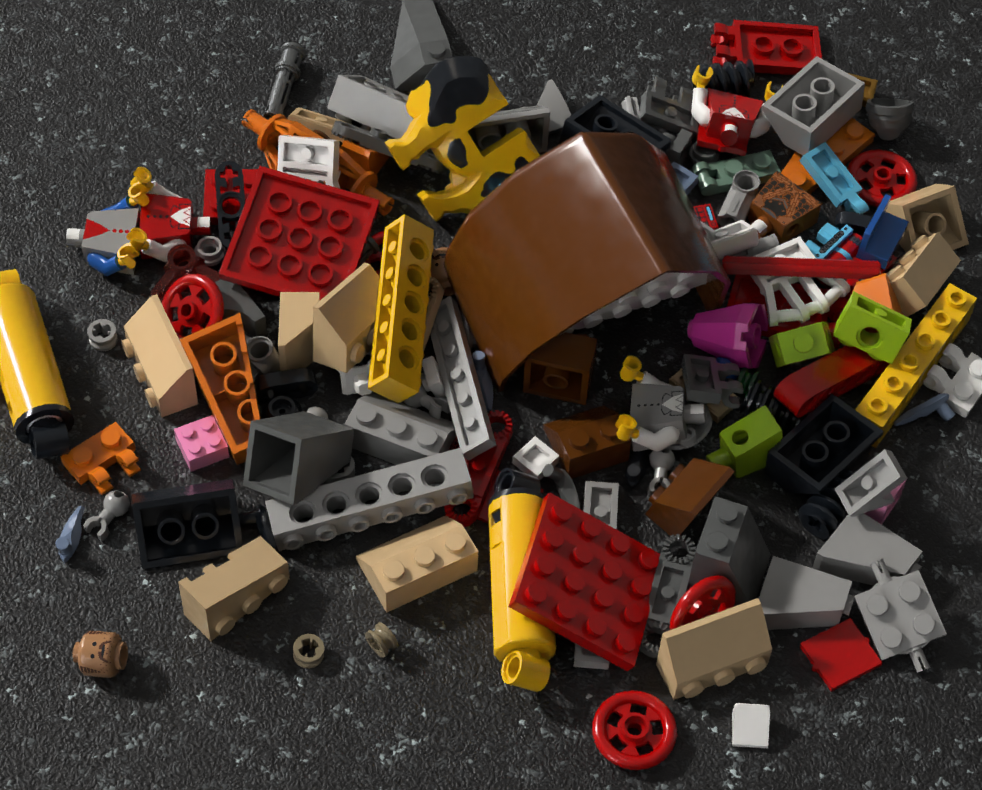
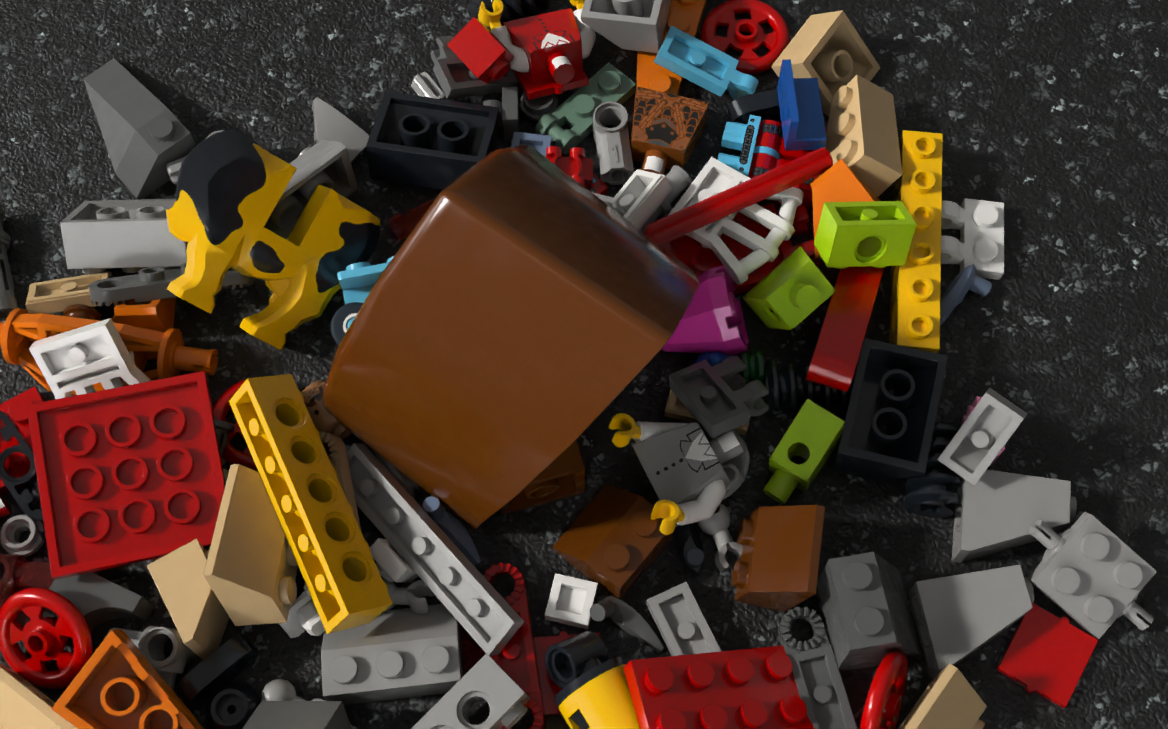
camera: 25 degrees left, 10 degrees up
(679, 97) = (481, 51): none -> red brick
(702, 203) = (575, 166): none -> red piece

